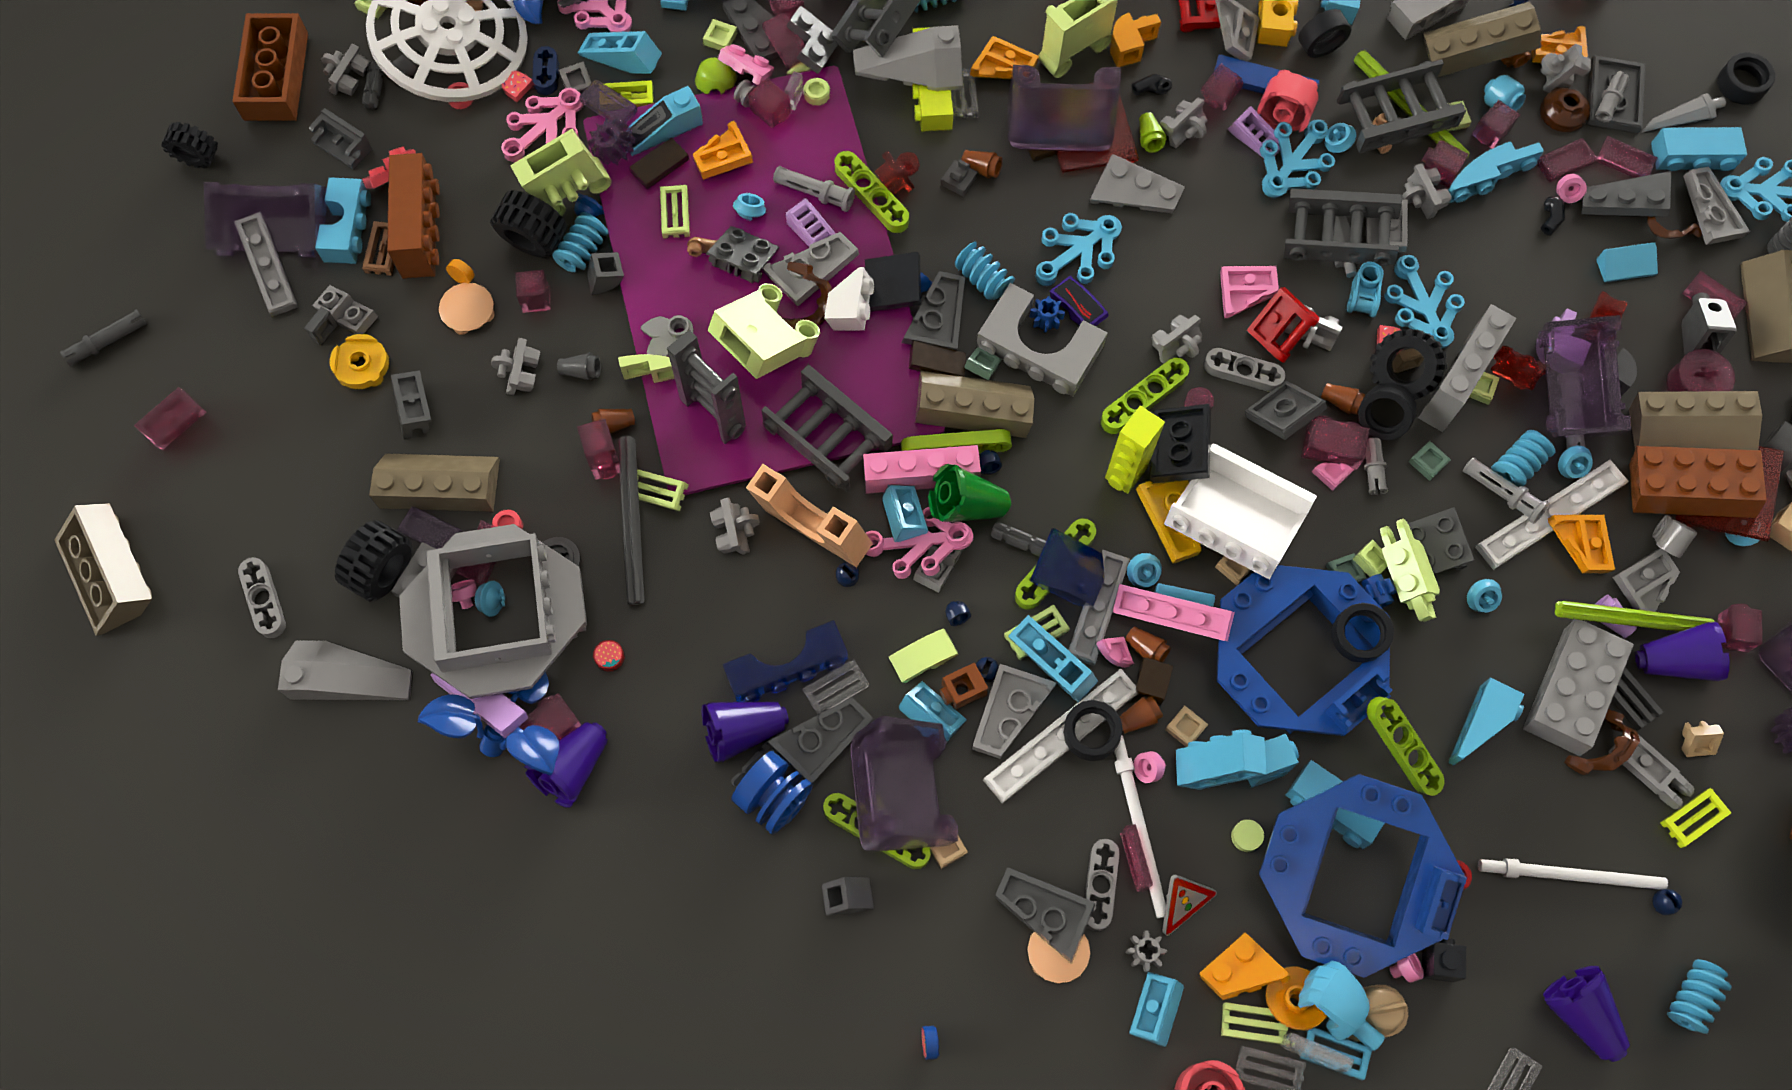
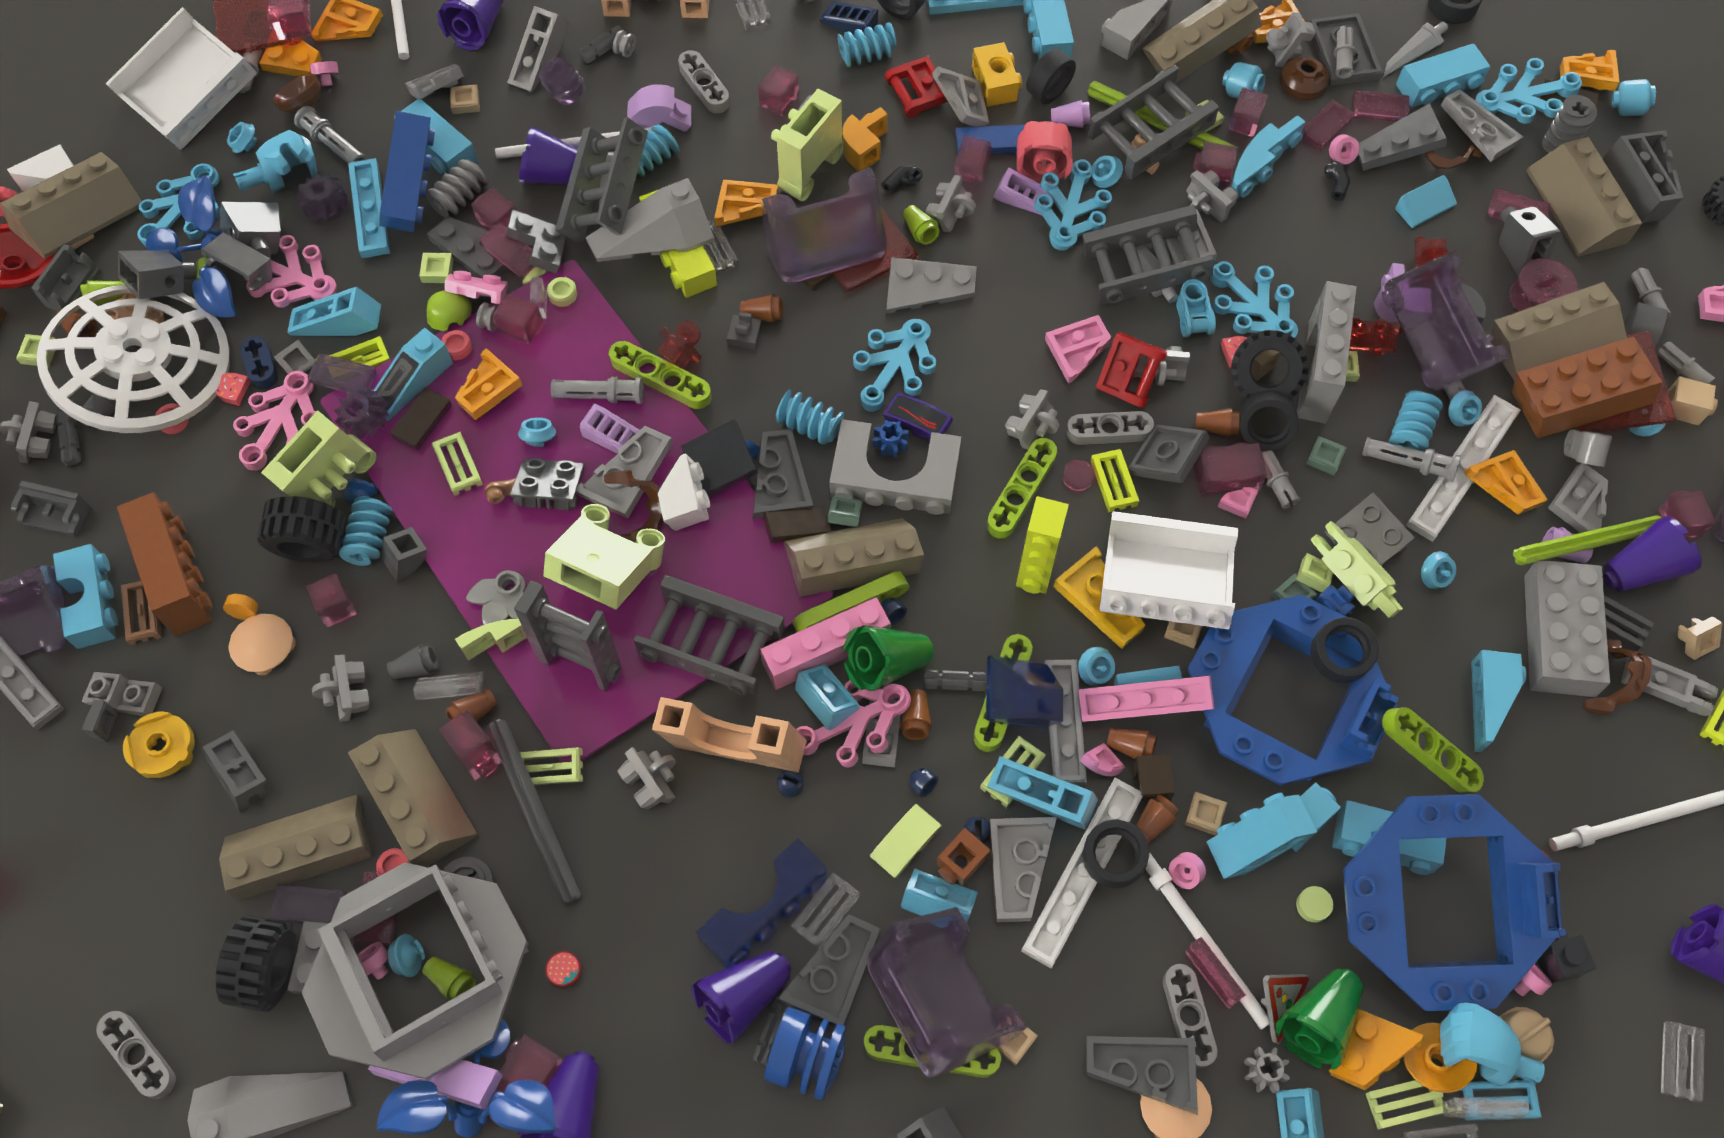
camera: 20 degrees left, 5 degrees down
(379, 175) = (112, 533): coral slope -> none
(516, 626) = (448, 978): none -> lime cone
(540, 474) = (413, 796): none -> dark tan slope
(601, 394) = (449, 685): none -> clear tile
(712, 109) = (458, 344): none -> coral tile
(972, 558) = (916, 719): none -> dark orange cone
(1182, 445) = (1088, 526): black tile -> none
(1211, 929) = (1323, 1019): none -> green cone
(1227, 438) = (1120, 501): none -> neon yellow tile
(1330, 75) = (1073, 114): none -> lavender cone

